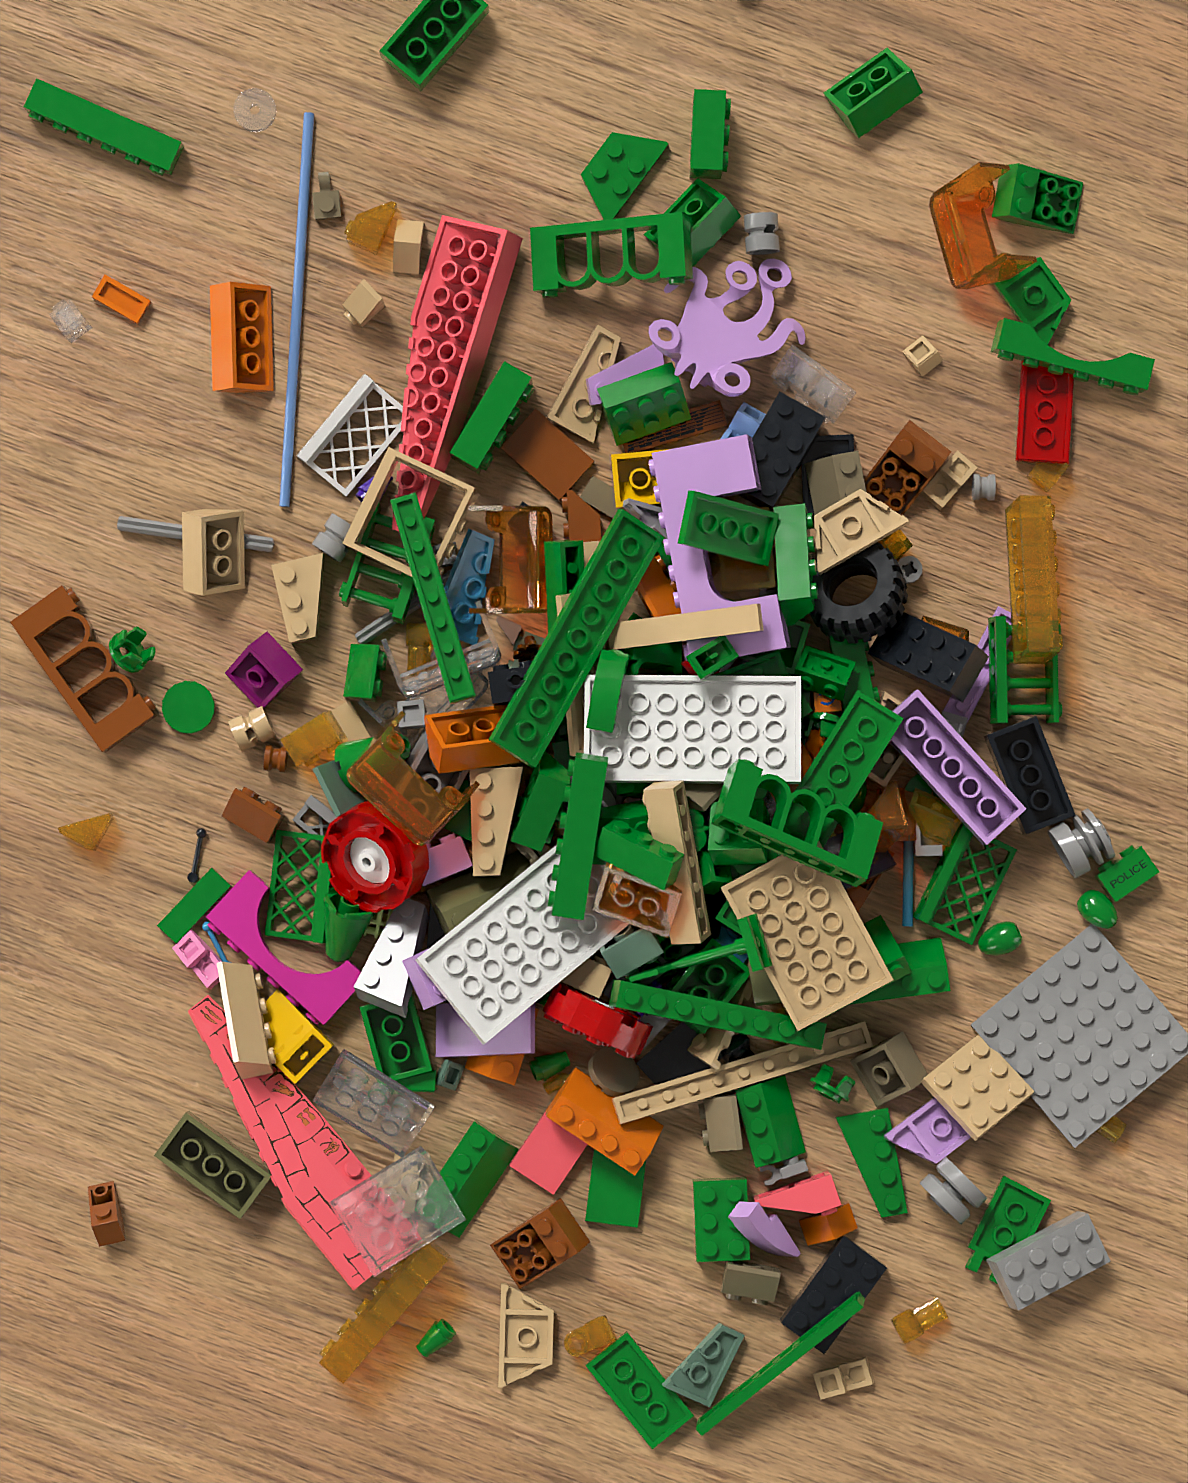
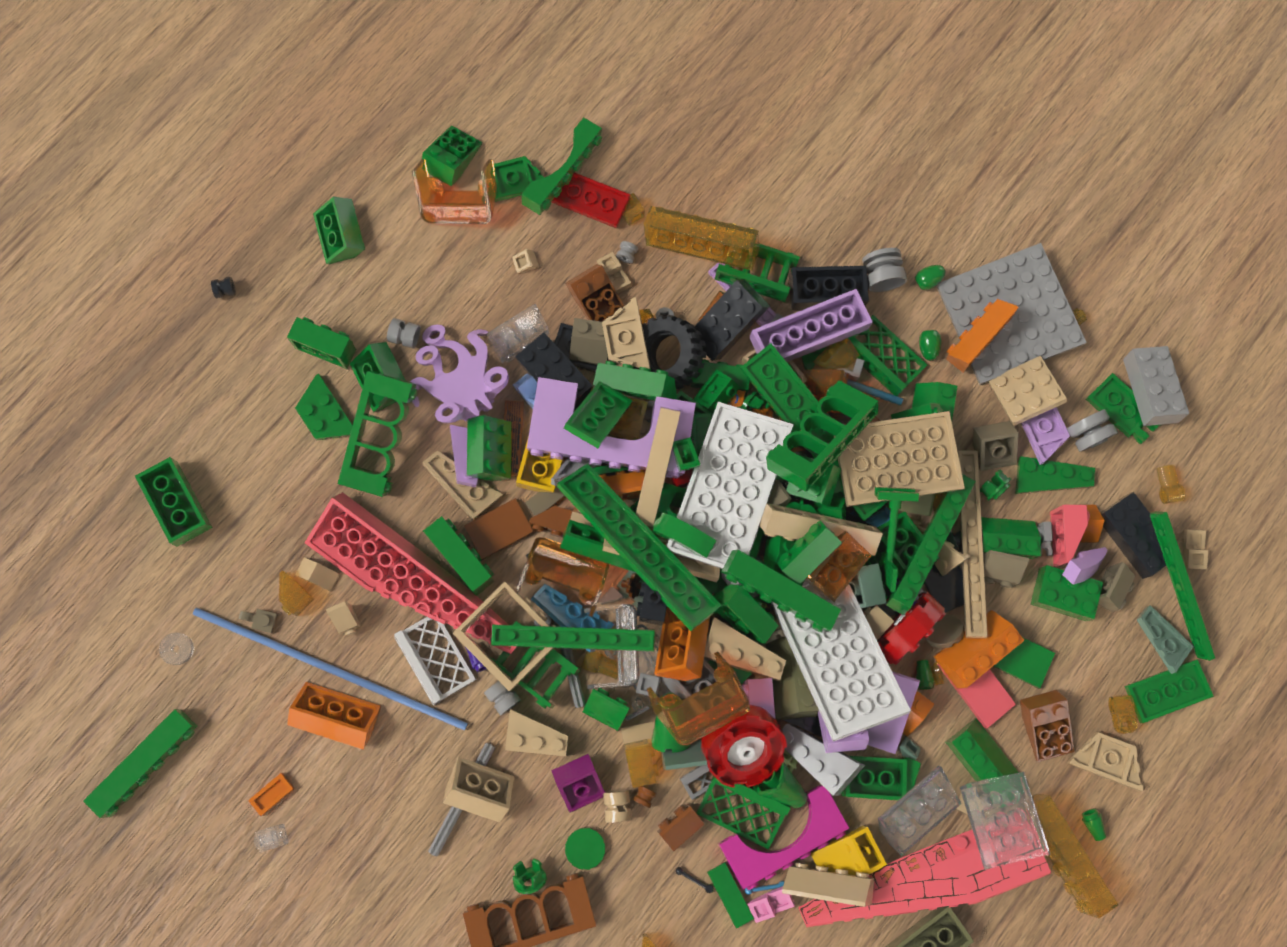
camera: 80 degrees left, 10 degrees down
(1032, 1000) = (981, 334): none -> orange slope
(1126, 873) = (912, 250): green brick -> none

